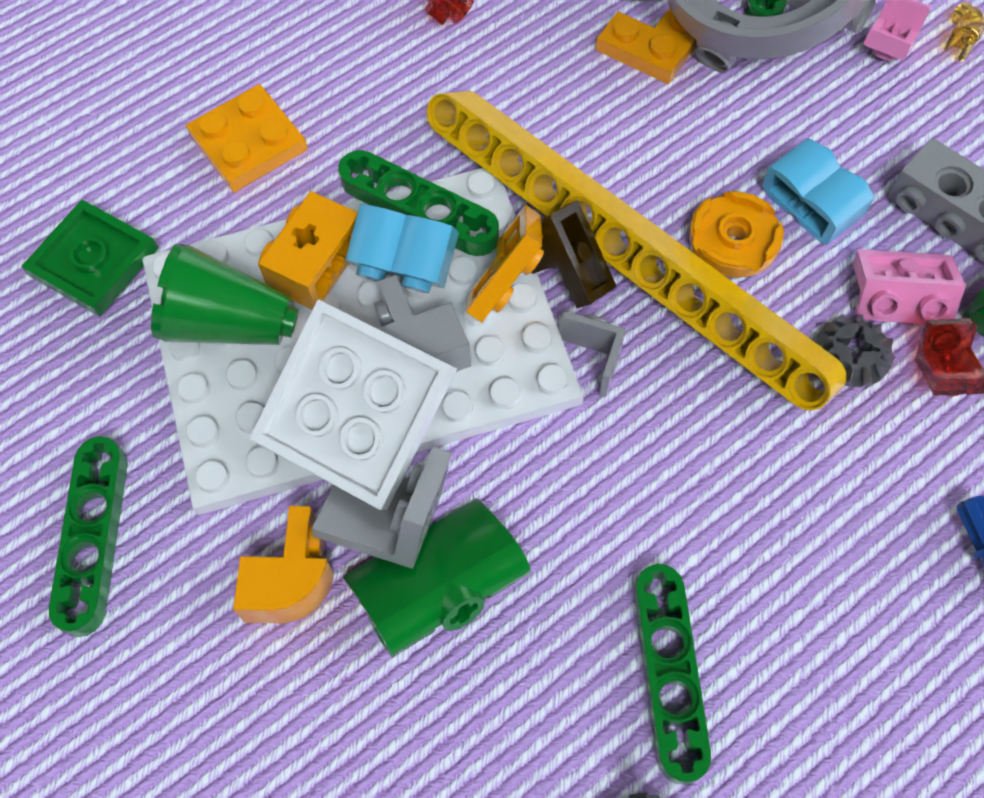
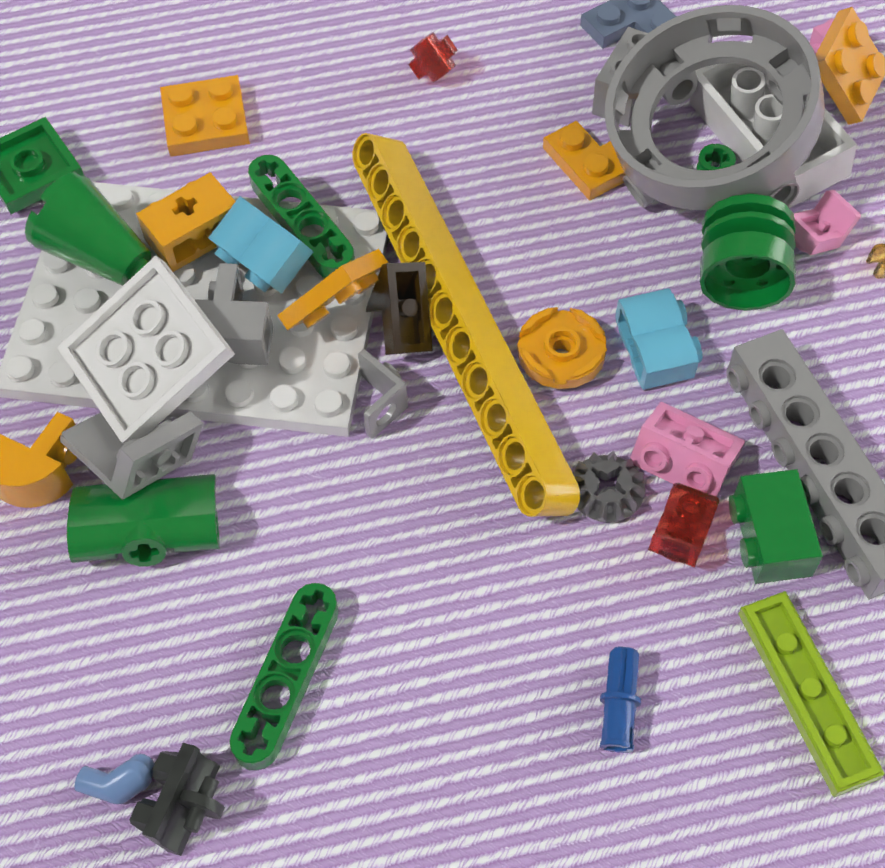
camera: 25 degrees right, 5 degrees down
(860, 76) = (748, 252): none -> green wheel

